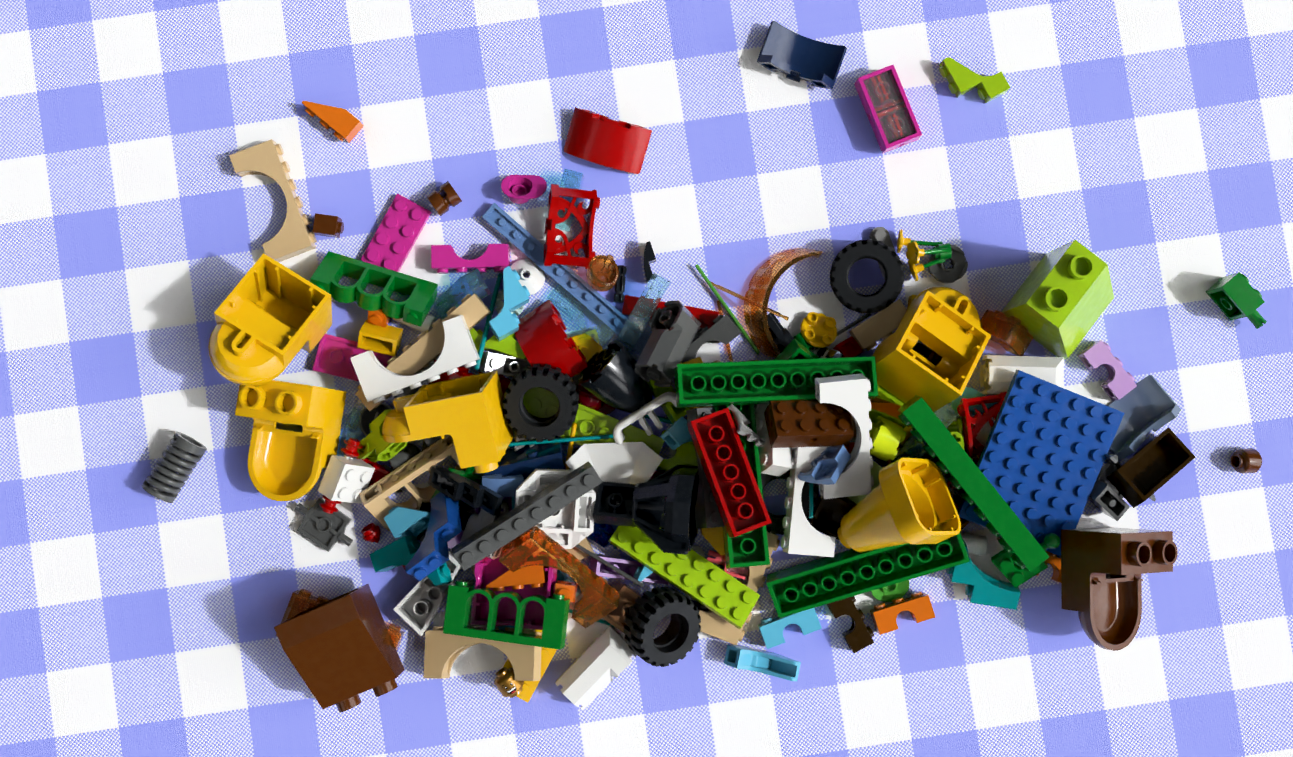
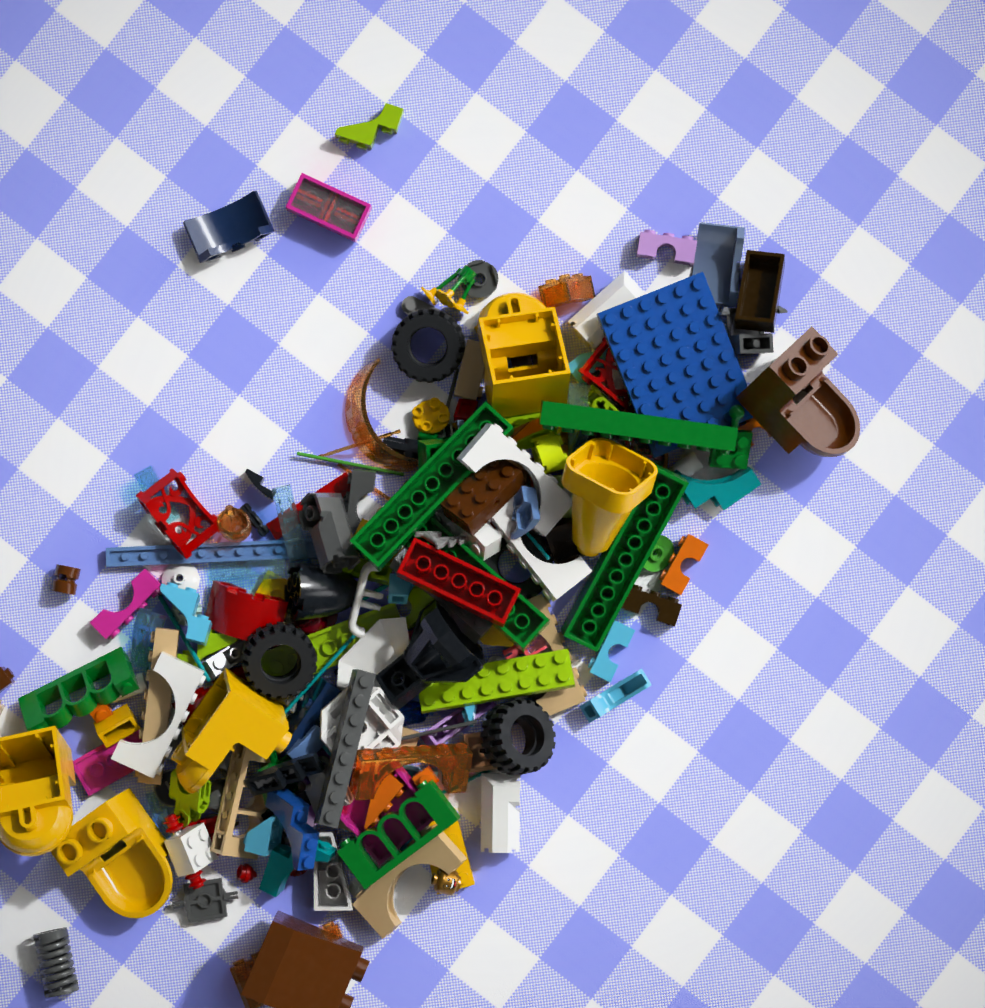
camera: 45 degrees left, 0 degrees up
(396, 234) = (55, 639): dark pink plate -> none
(523, 187) = (117, 516): dark pink piece -> none
(570, 446) = (329, 670): yellow axle -> none
(607, 141) = (146, 424): red panel -> none
(1063, 297) = (585, 230): lime slope -> none
(1237, 298) = (711, 109): green brick -> none
(1246, 460) = (827, 219): reddish brown head -> none

